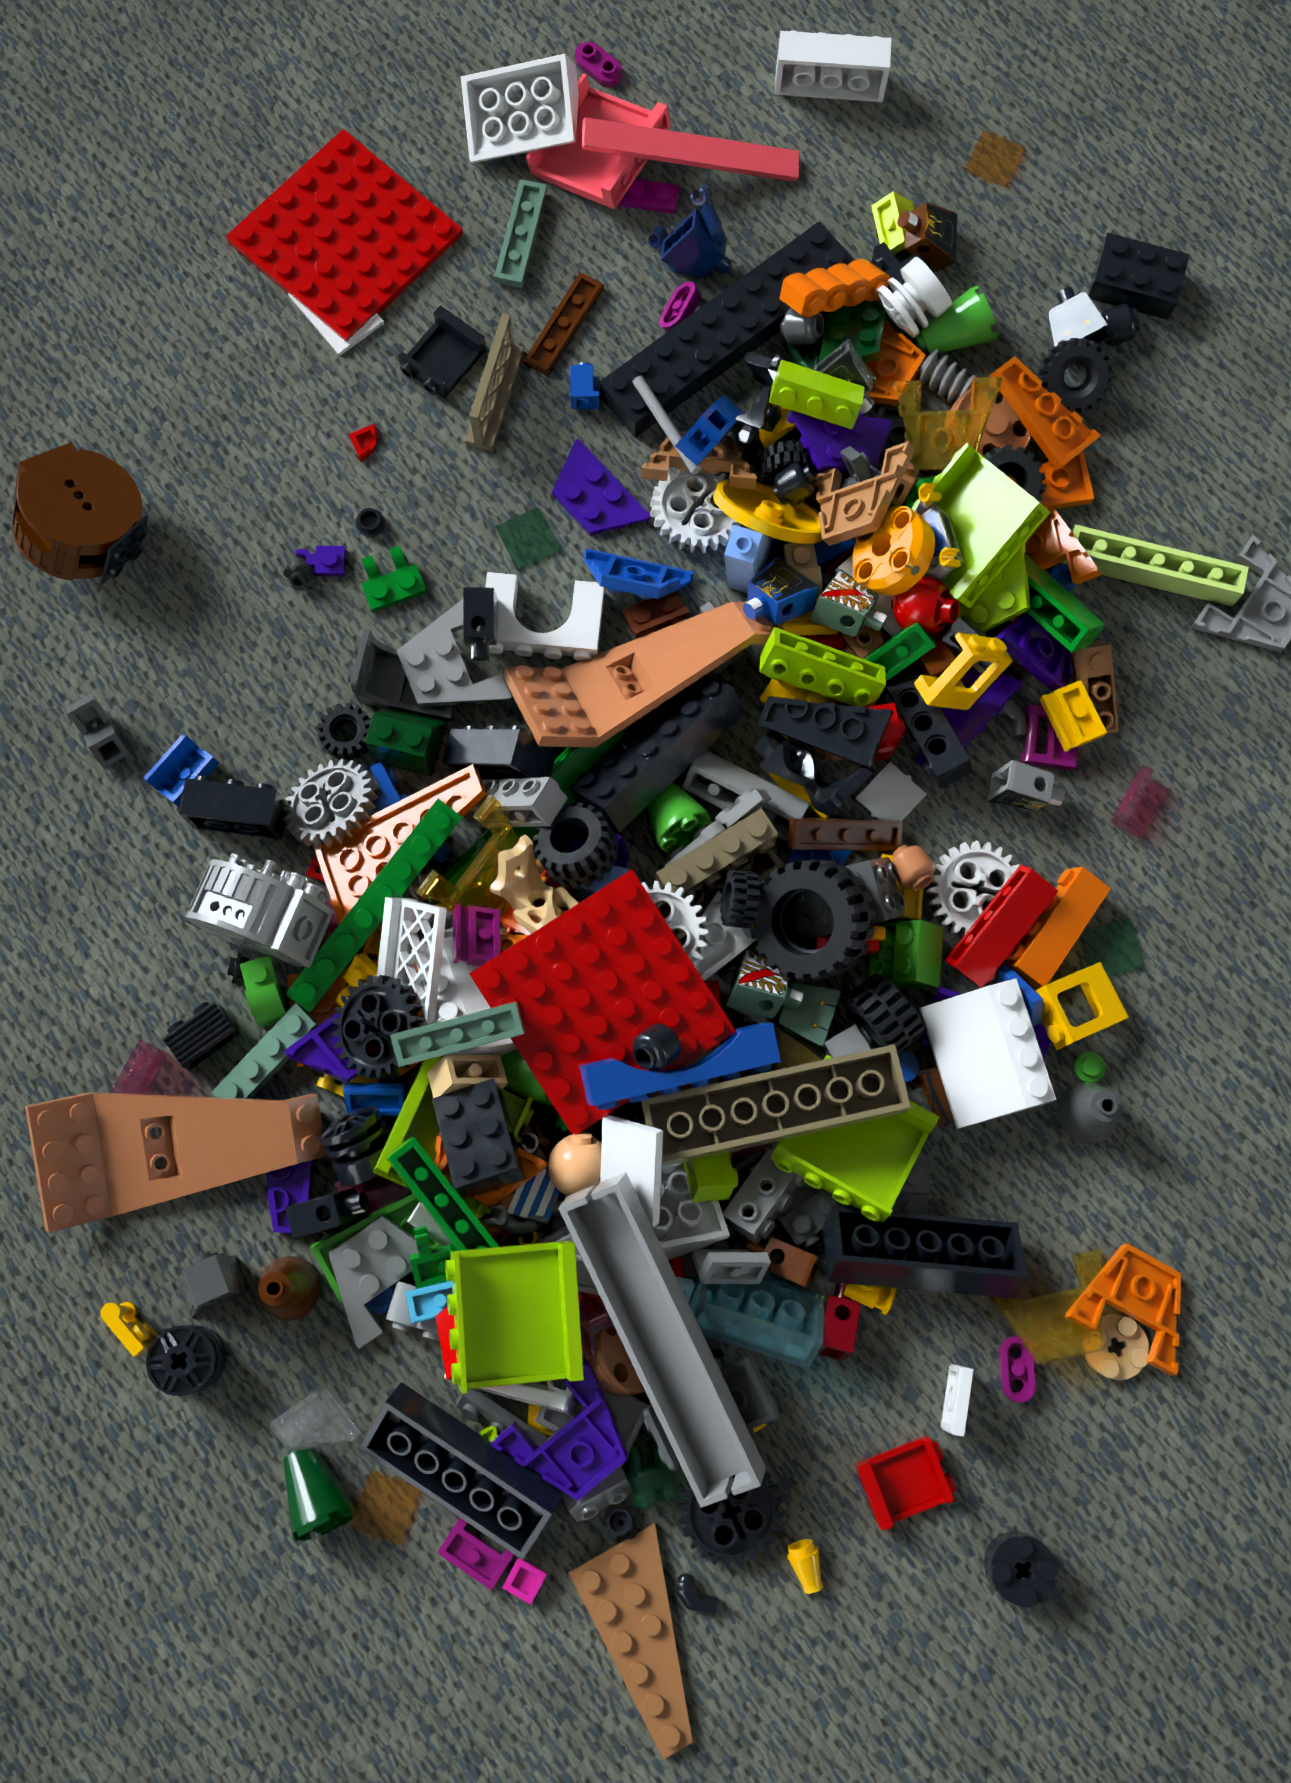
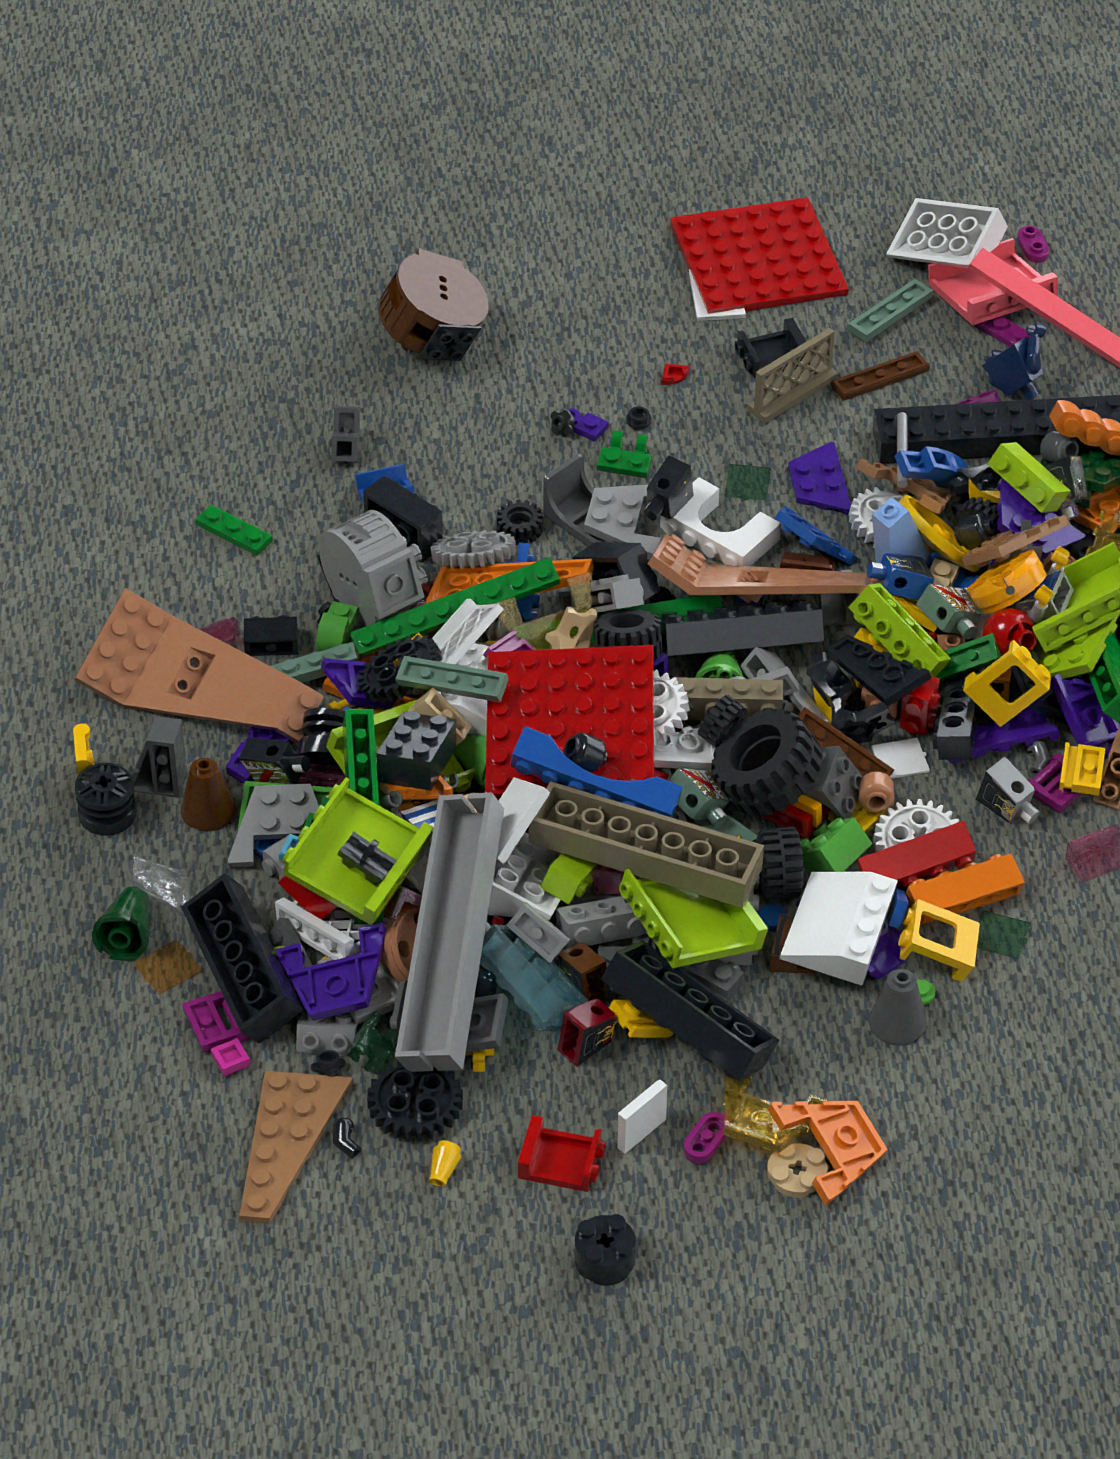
camera: 35 degrees right, 30 degrees down
(65, 917) = (234, 530): none -> green plate
(405, 740) = (553, 533): dark green slope -> none
(535, 1327) = (366, 857): none -> black hips
(584, 387) = (860, 413): blue brick -> none

